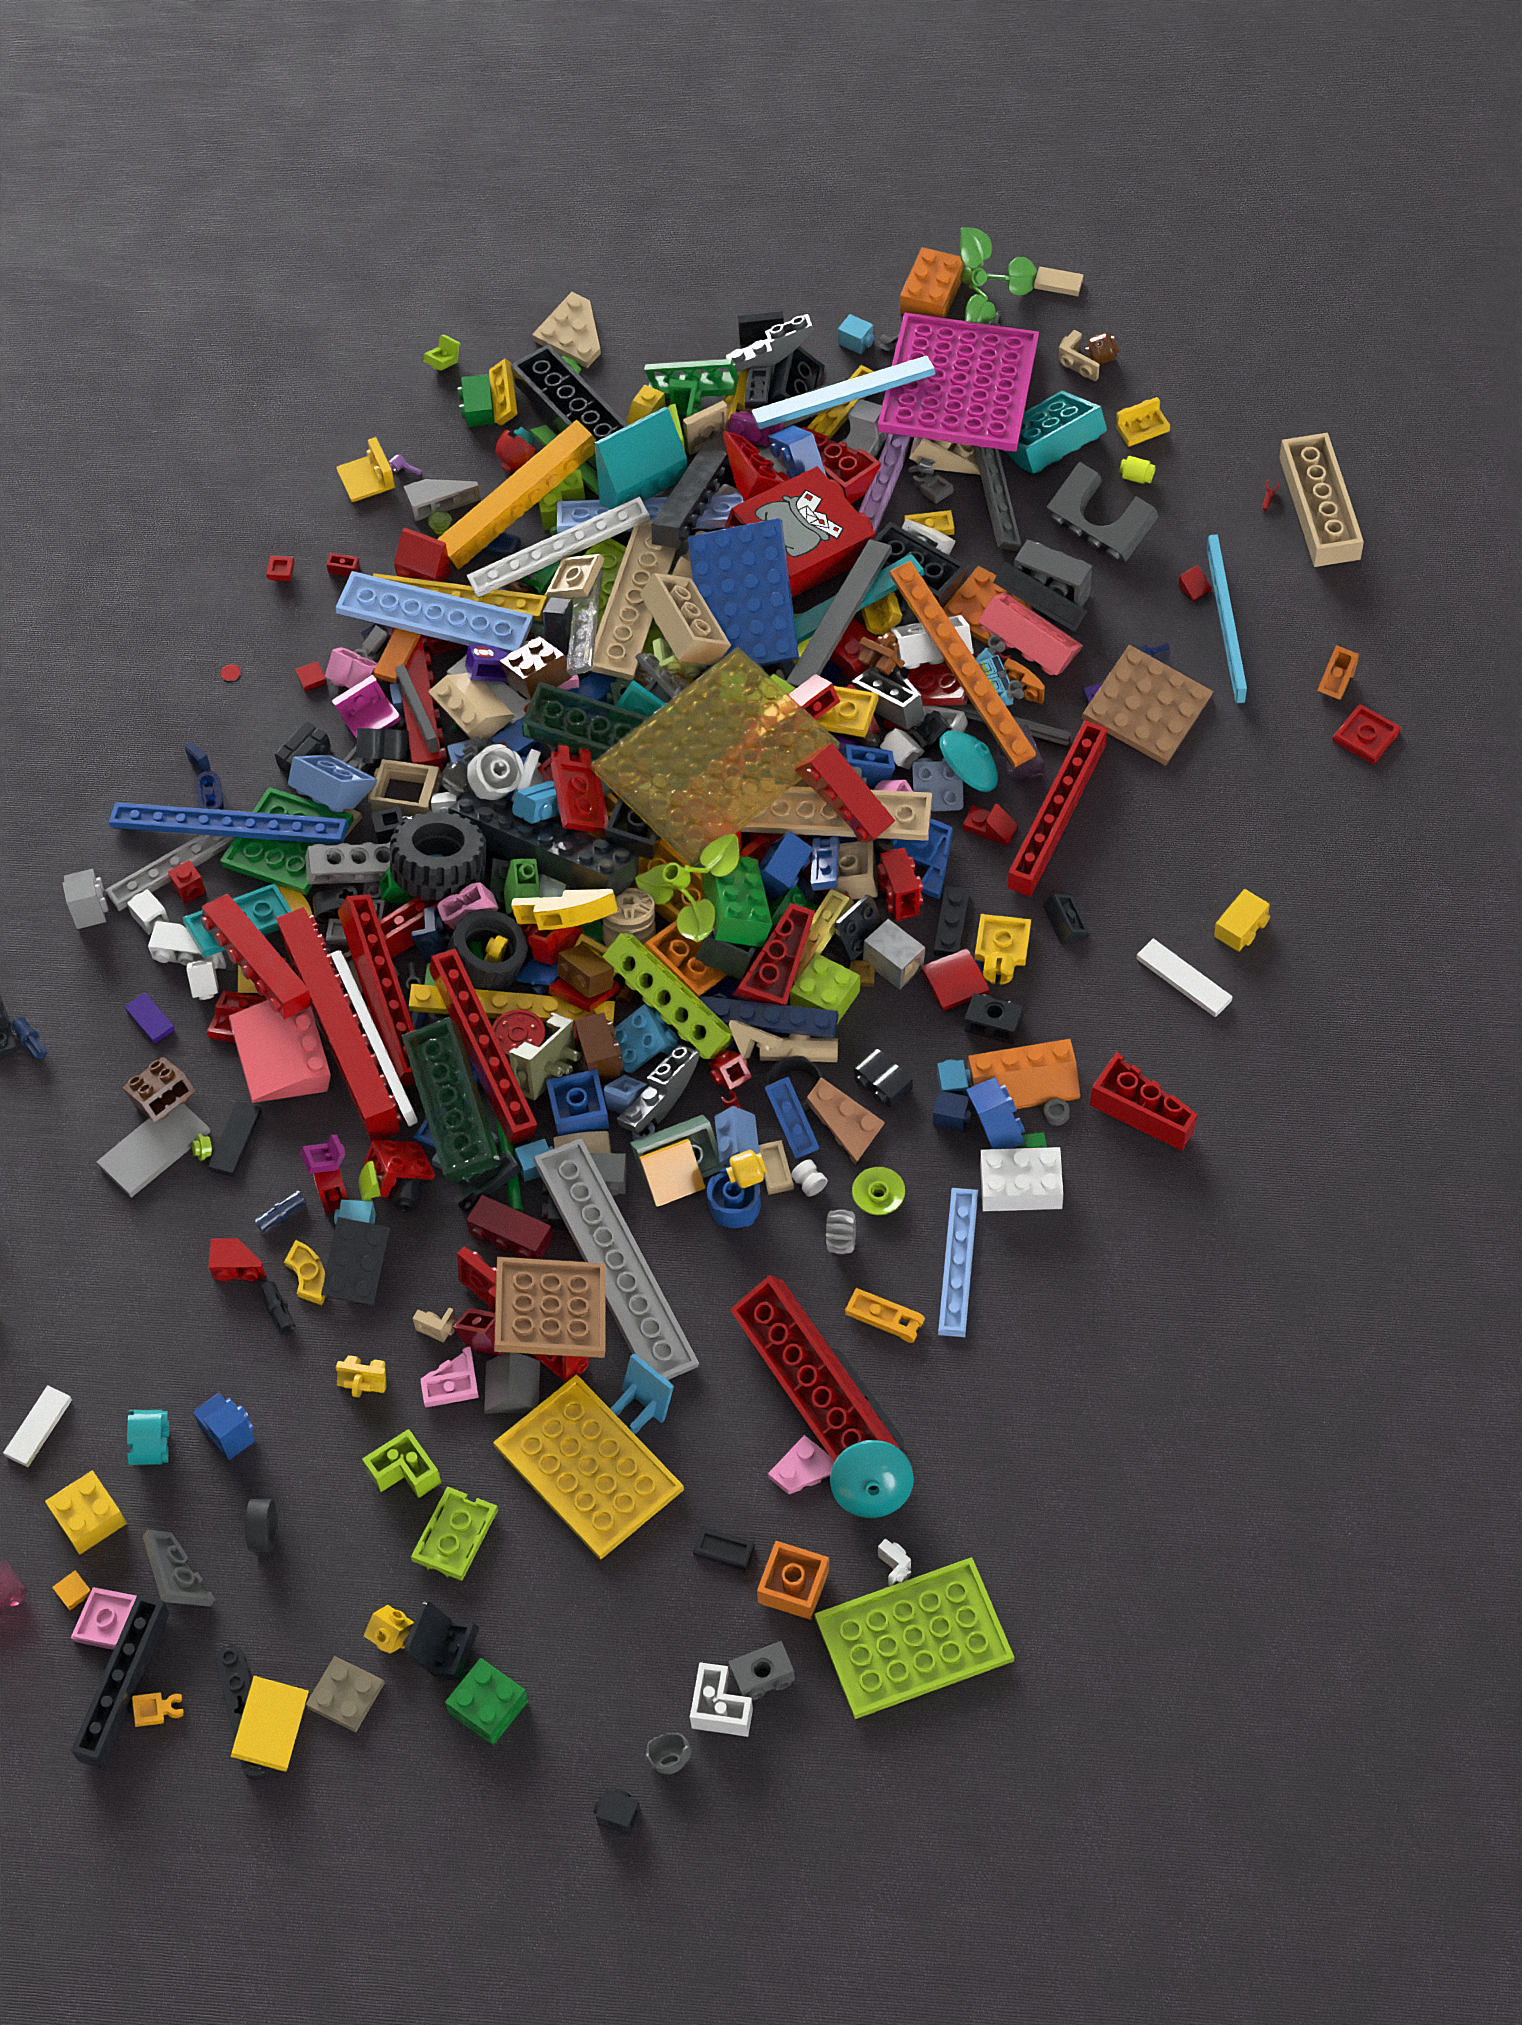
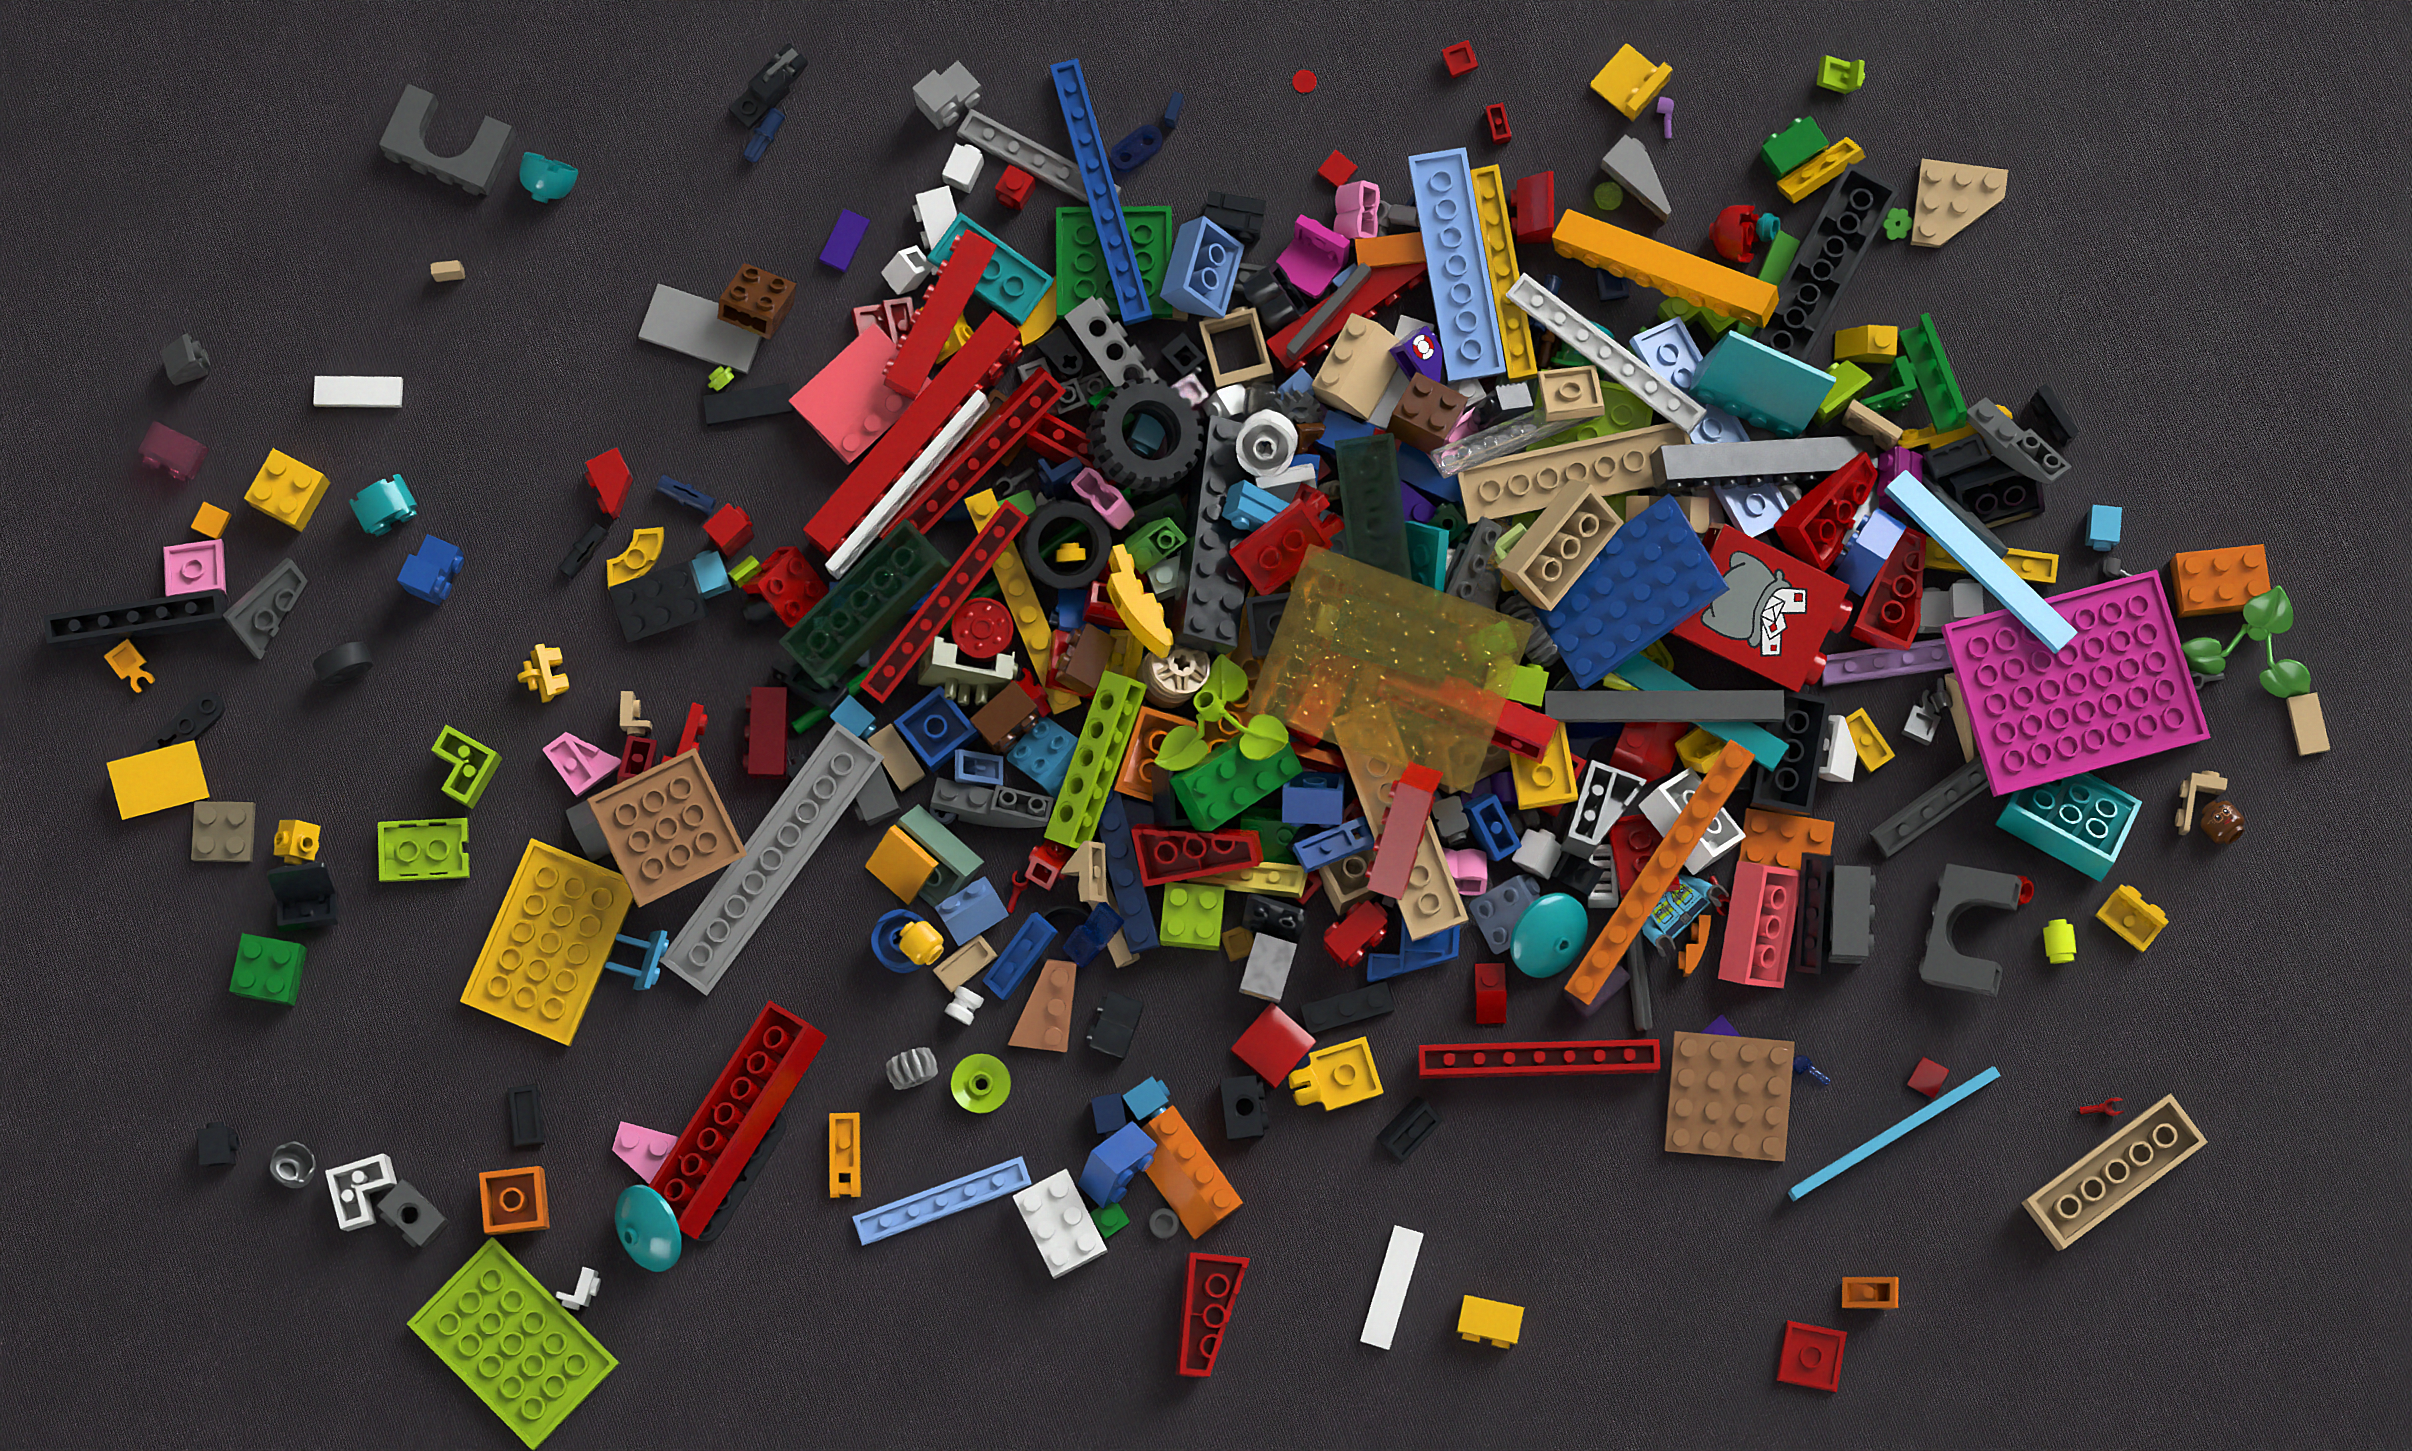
camera: 65 degrees right, 20 degrees up
(323, 1156) = (734, 513): magenta bracket -> none
(804, 1057) = (1094, 935): none -> clear blue slope
(884, 651) = (1640, 778): dark orange hips -> none

